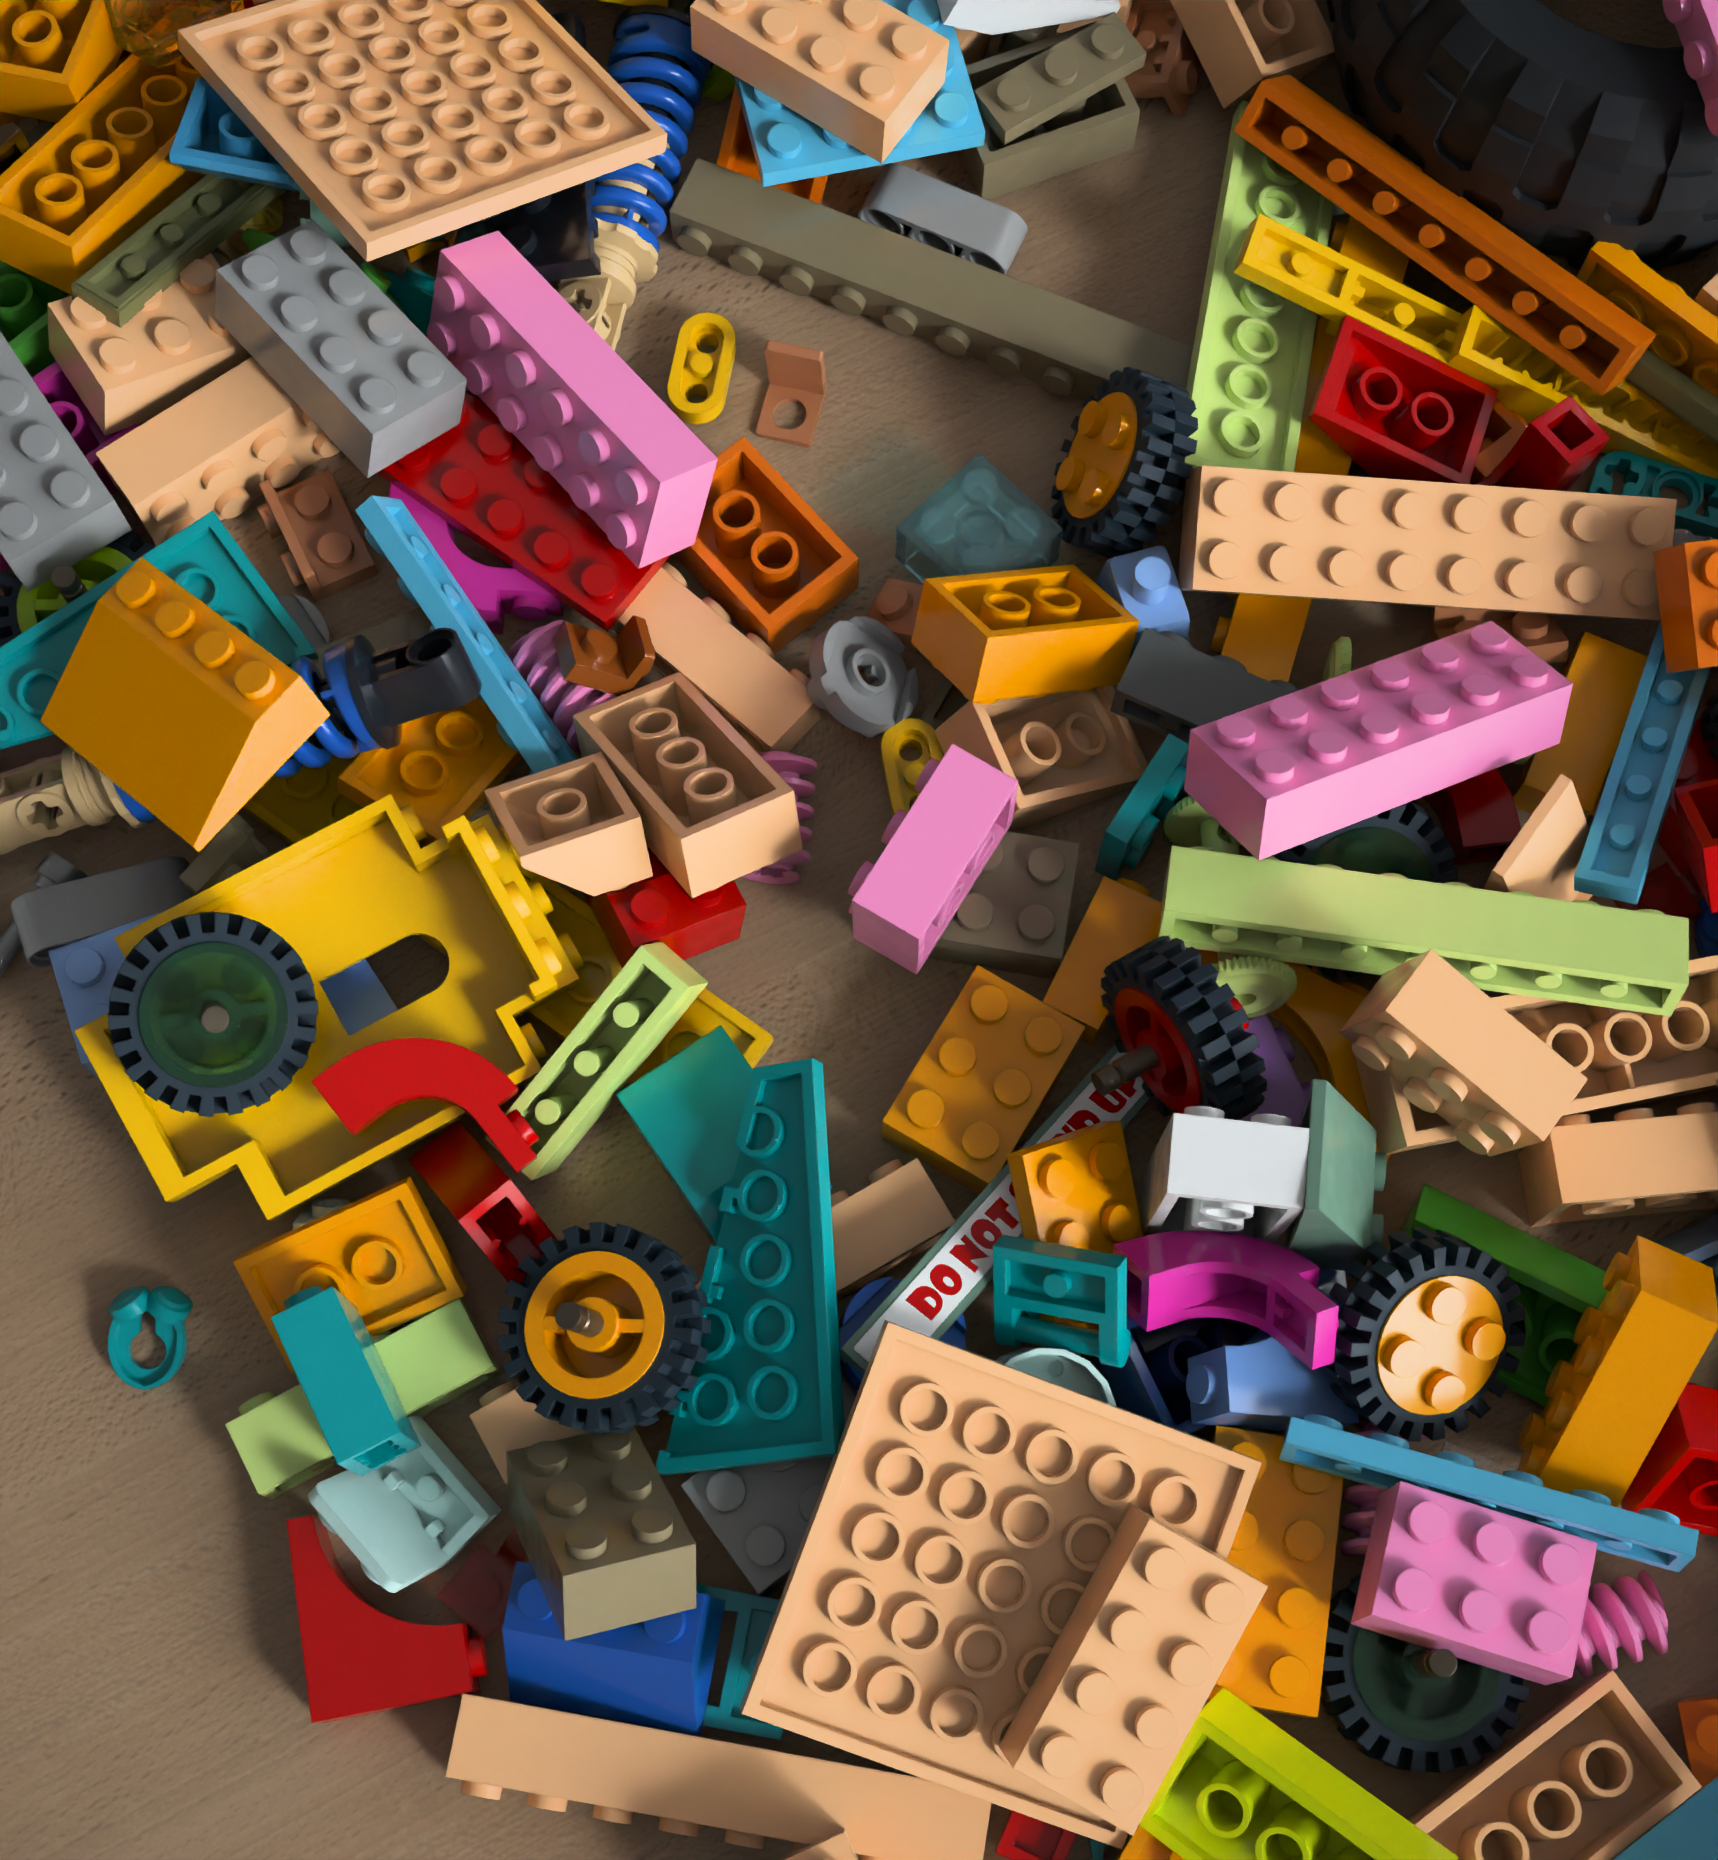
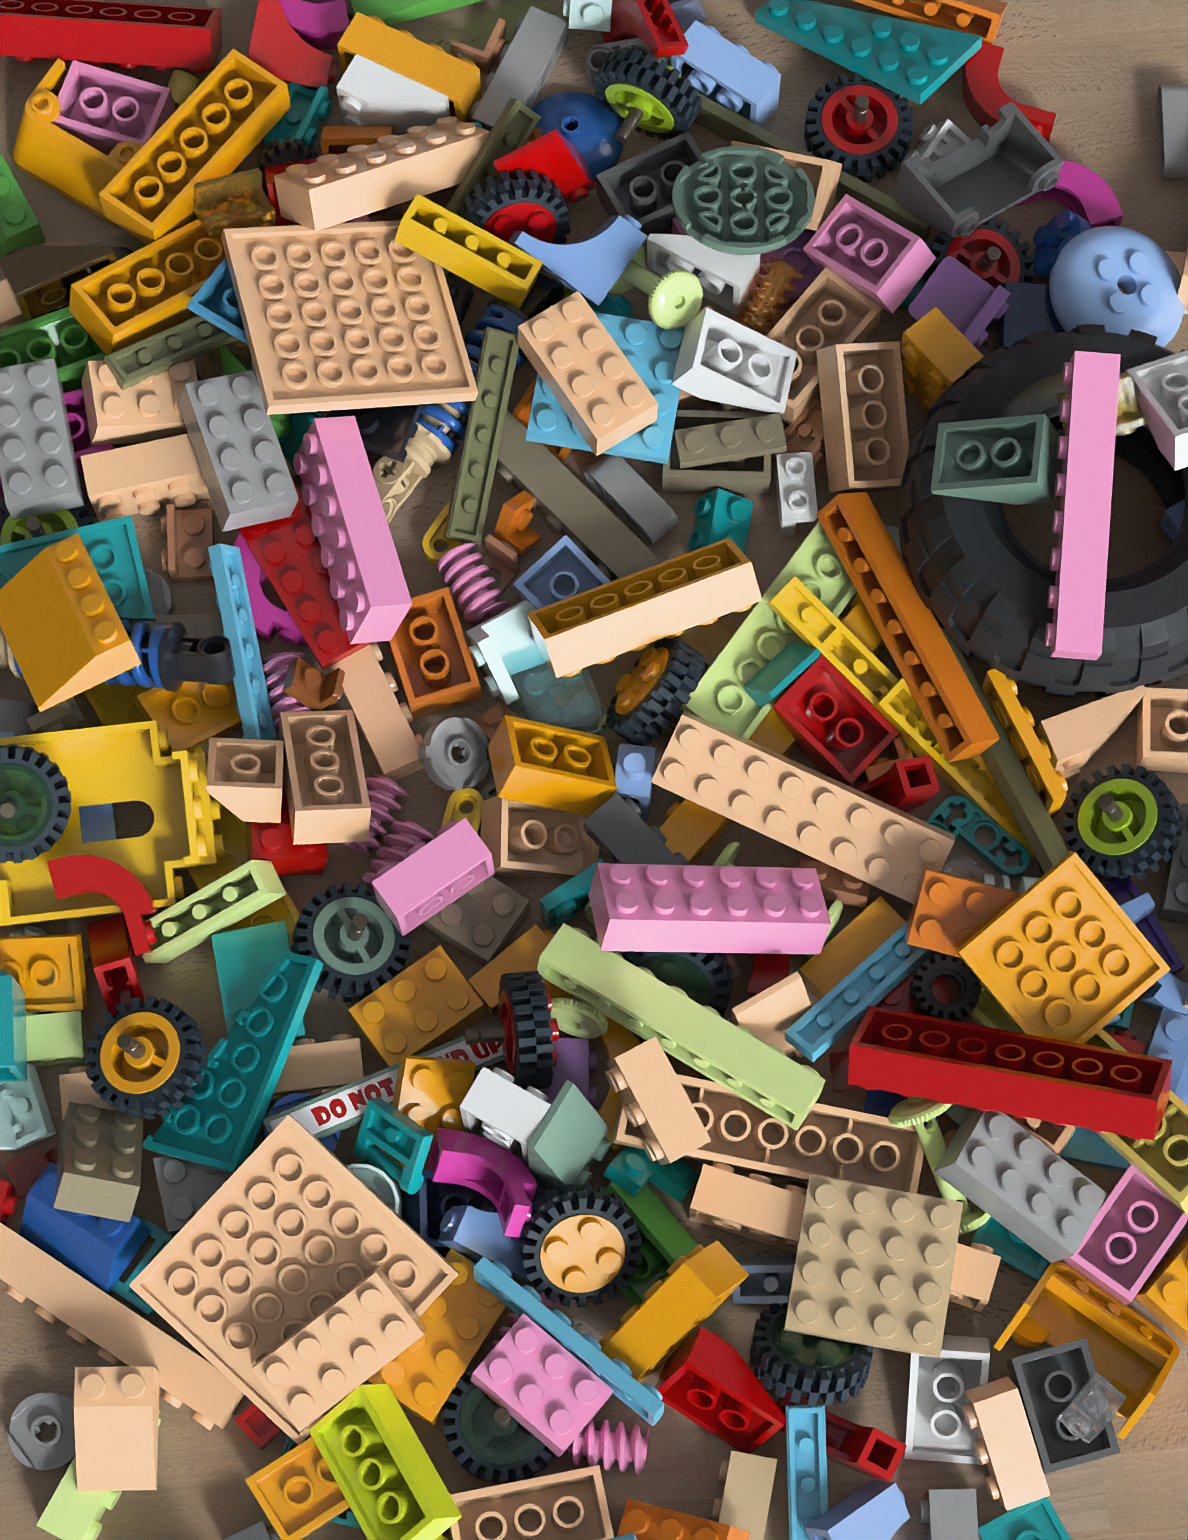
camera: 25 degrees right, 0 degrees up
(695, 209) = (482, 437): none -> olive tile
(775, 434) = (468, 584): none -> bright pink piece
(793, 310) = (514, 522): none -> orange bracket
(840, 851) = (404, 837): none -> bright pink piece
(841, 1007) = (352, 940): none -> wheel
(869, 490) = (505, 648): none -> light aqua bracket
(911, 379) = (558, 575): none -> light blue brick
(1056, 347) = (644, 607): none -> brick
(1090, 219) = (721, 517): none -> teal bracket
(1176, 126) = (795, 490): none -> white bracket
(1295, 367) = (780, 672): none -> teal slope
(1438, 1177) = (634, 1169): none -> teal plate

